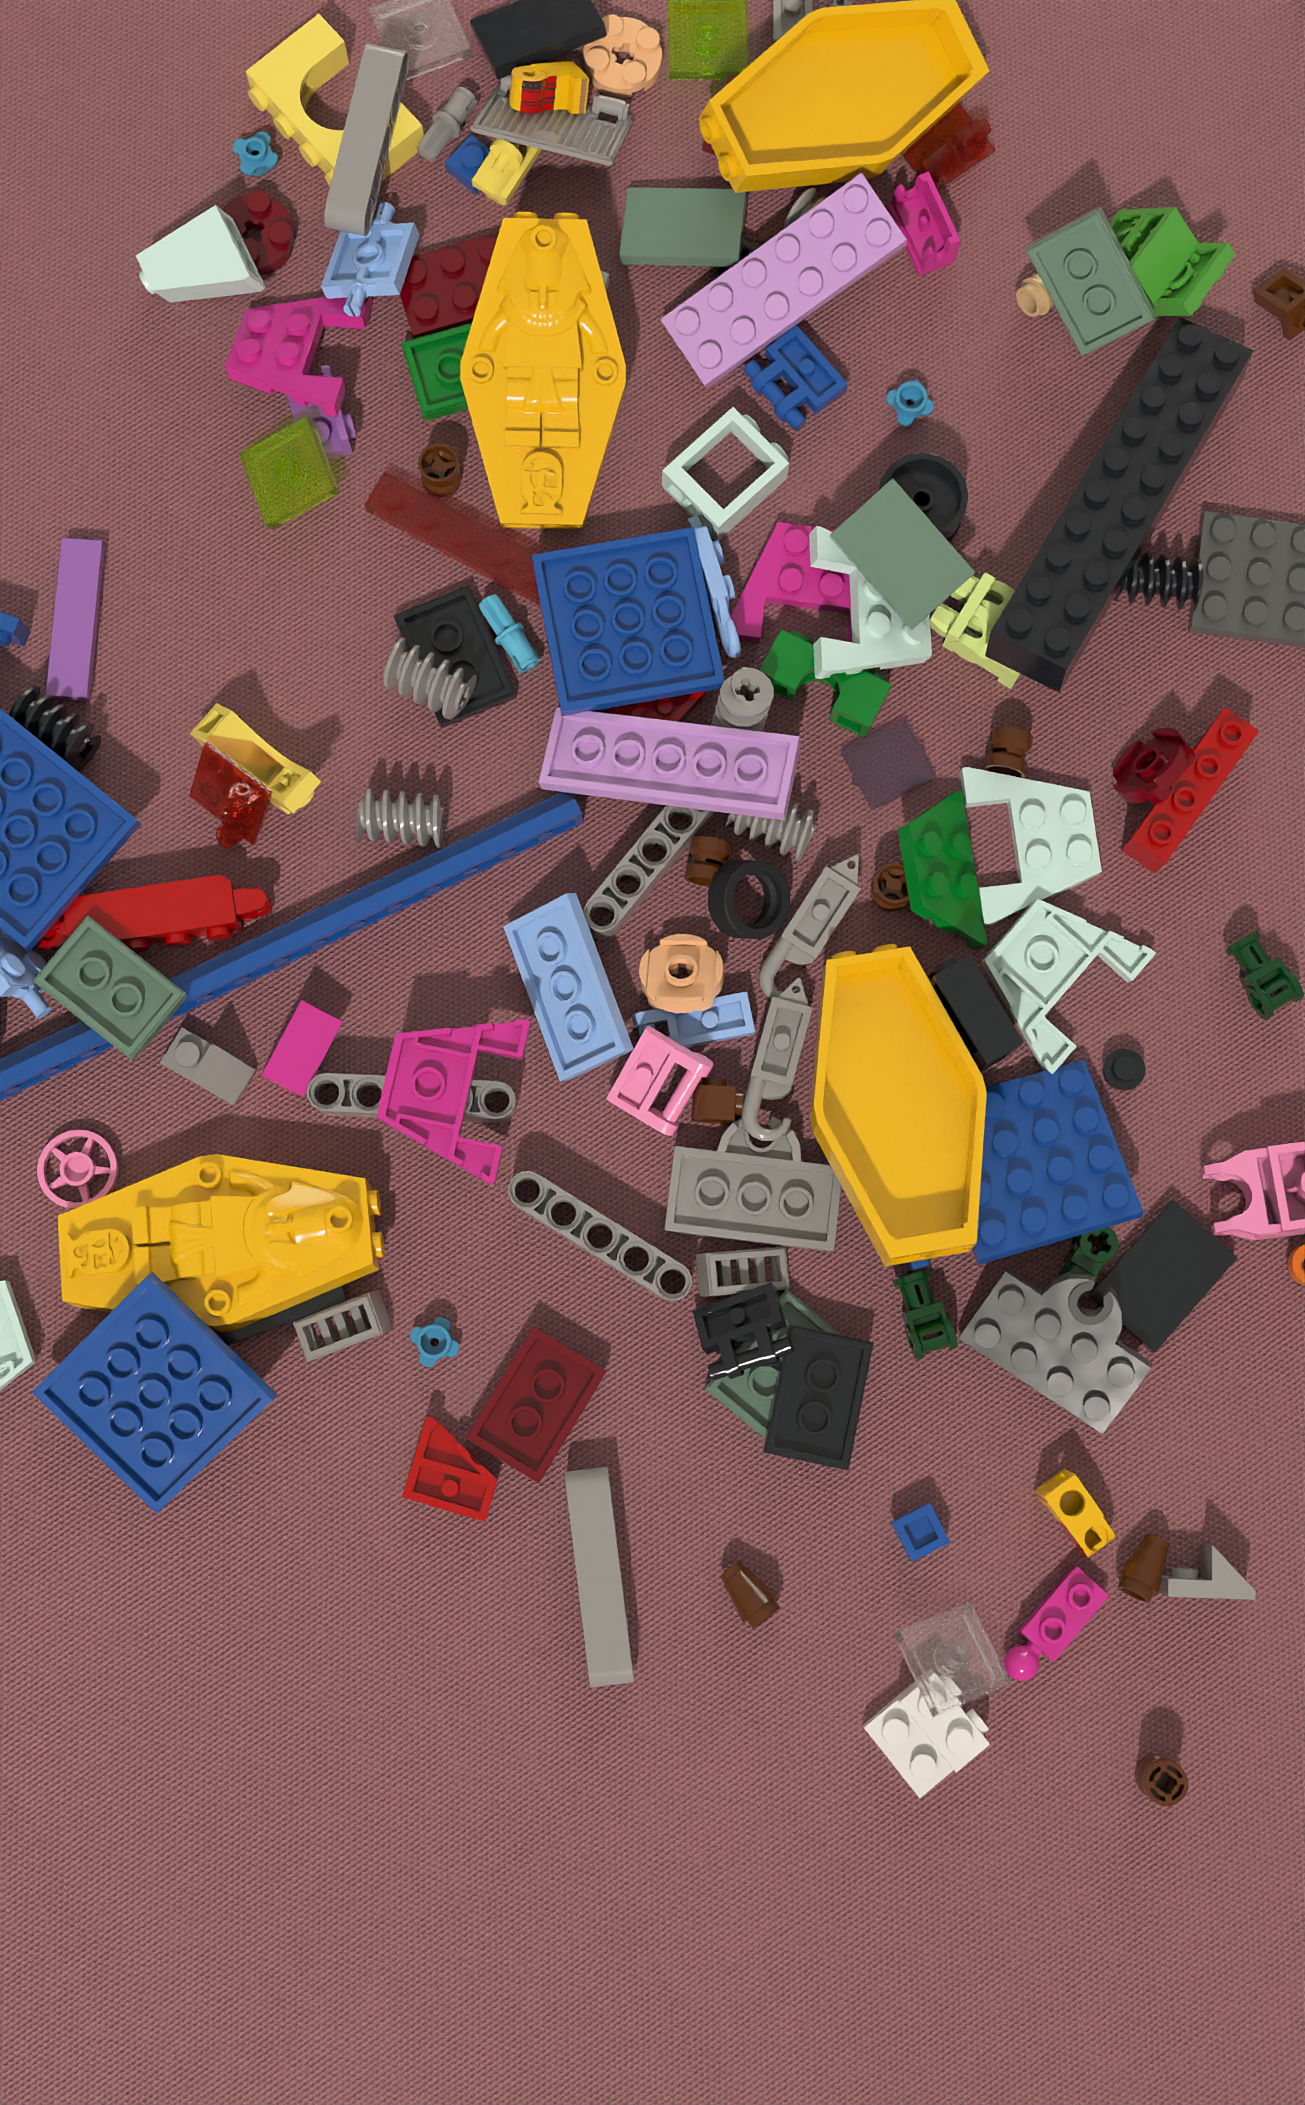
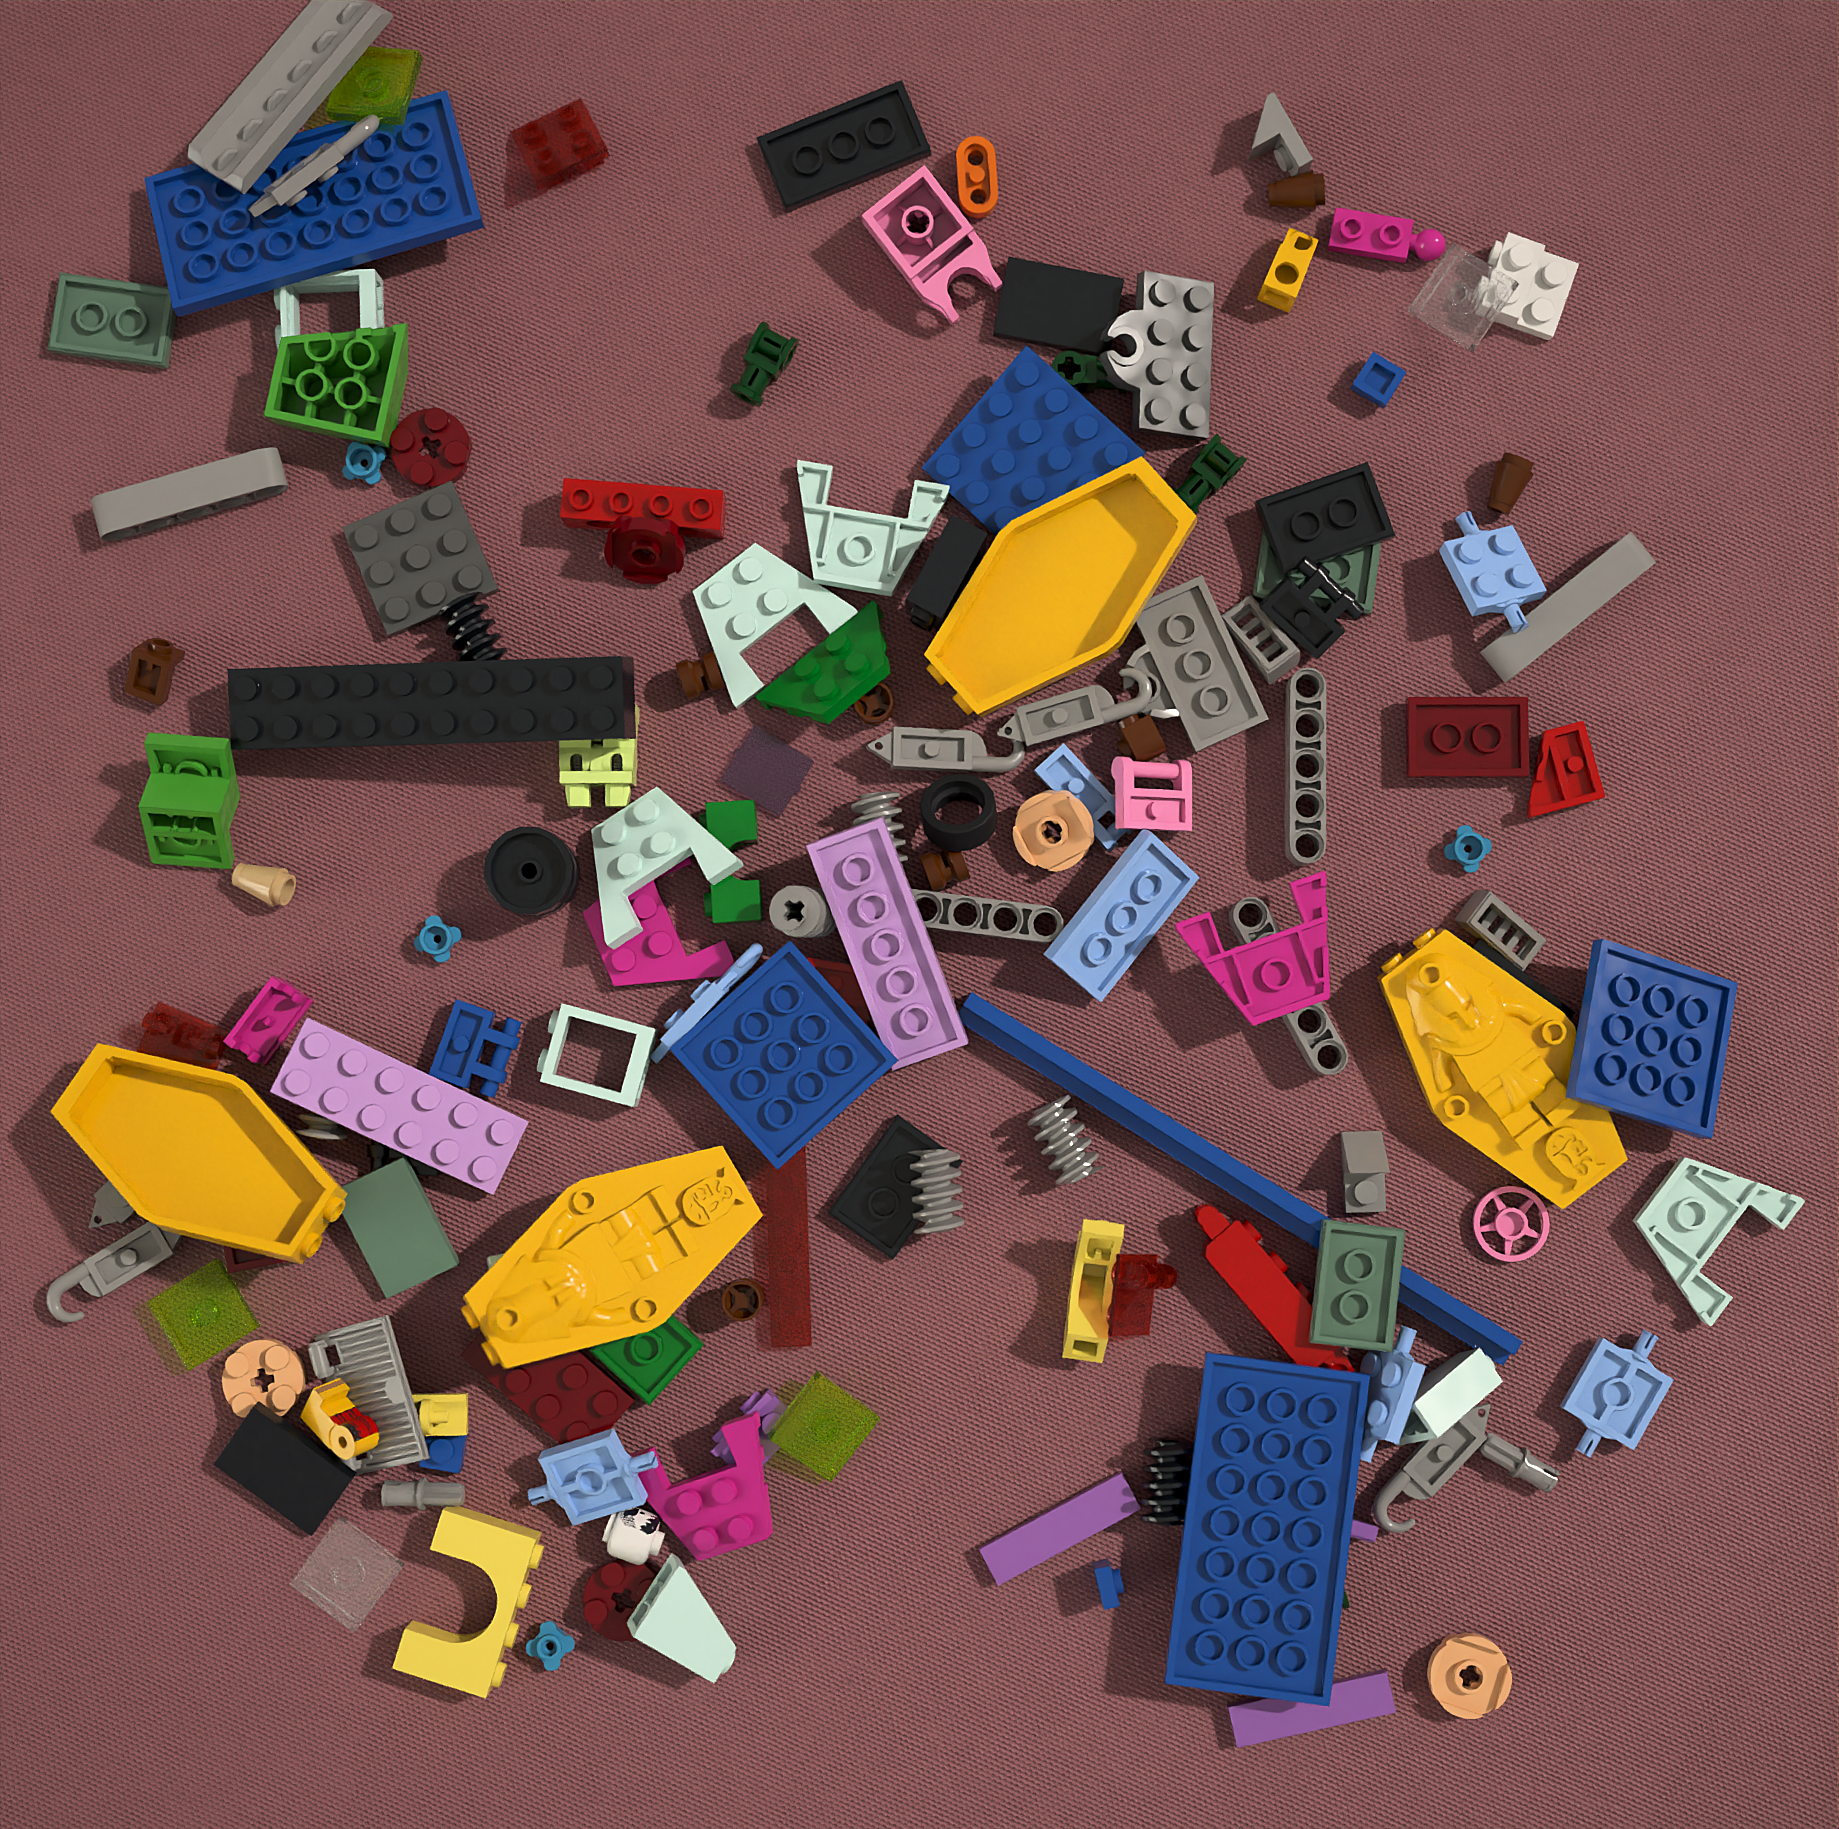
camera: 115 degrees left, 5 degrees up
(300, 268) = (633, 1535): none -> white head
(301, 1049) = (1304, 1103): dark pink hinge -> none
(366, 139) = (489, 1545): light grey beam -> none
(509, 634) = (849, 1152): medium azure axle -> none
(675, 1523) = (1492, 571): none -> light blue plate
(902, 554) = (592, 856): sand green tile -> none
(1091, 281) = (246, 841): sand green tile -> none
(1123, 1069) = (909, 431): black plate -> none
(1154, 1774) = (1445, 97): reddish brown wheel -> none

